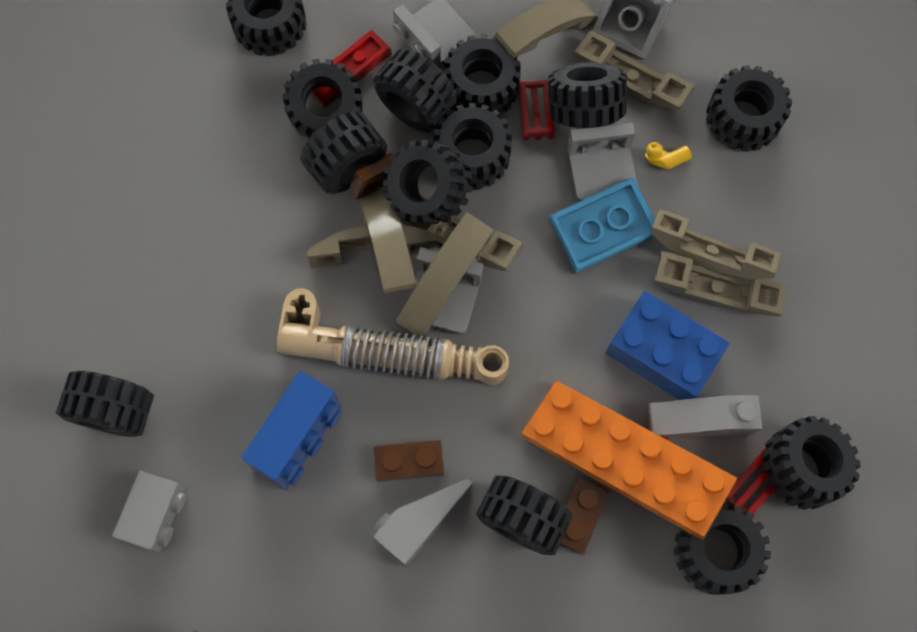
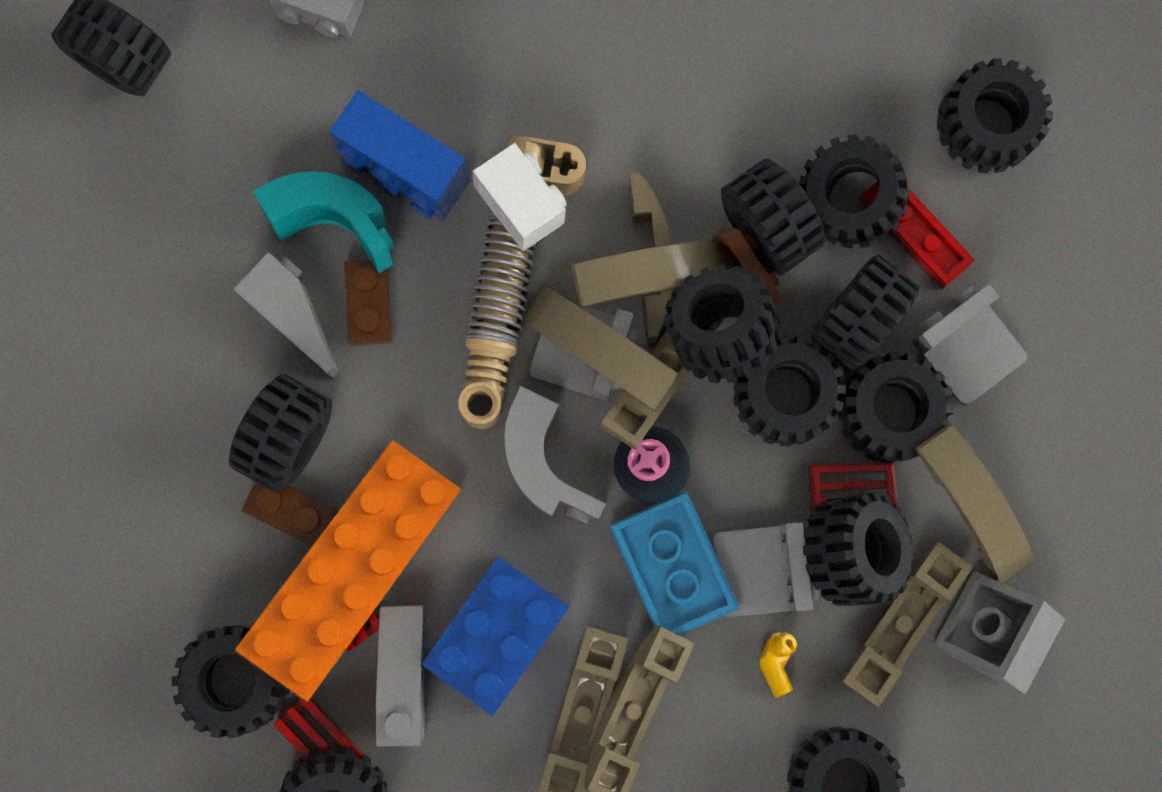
camera: 90 degrees right, 10 degrees up
(326, 491) = (326, 198): none -> teal arch
(330, 330) = (520, 196): none -> white brick
(525, 229) = (667, 479): none -> black wheel
(531, 330) = (524, 449): none -> light grey arch

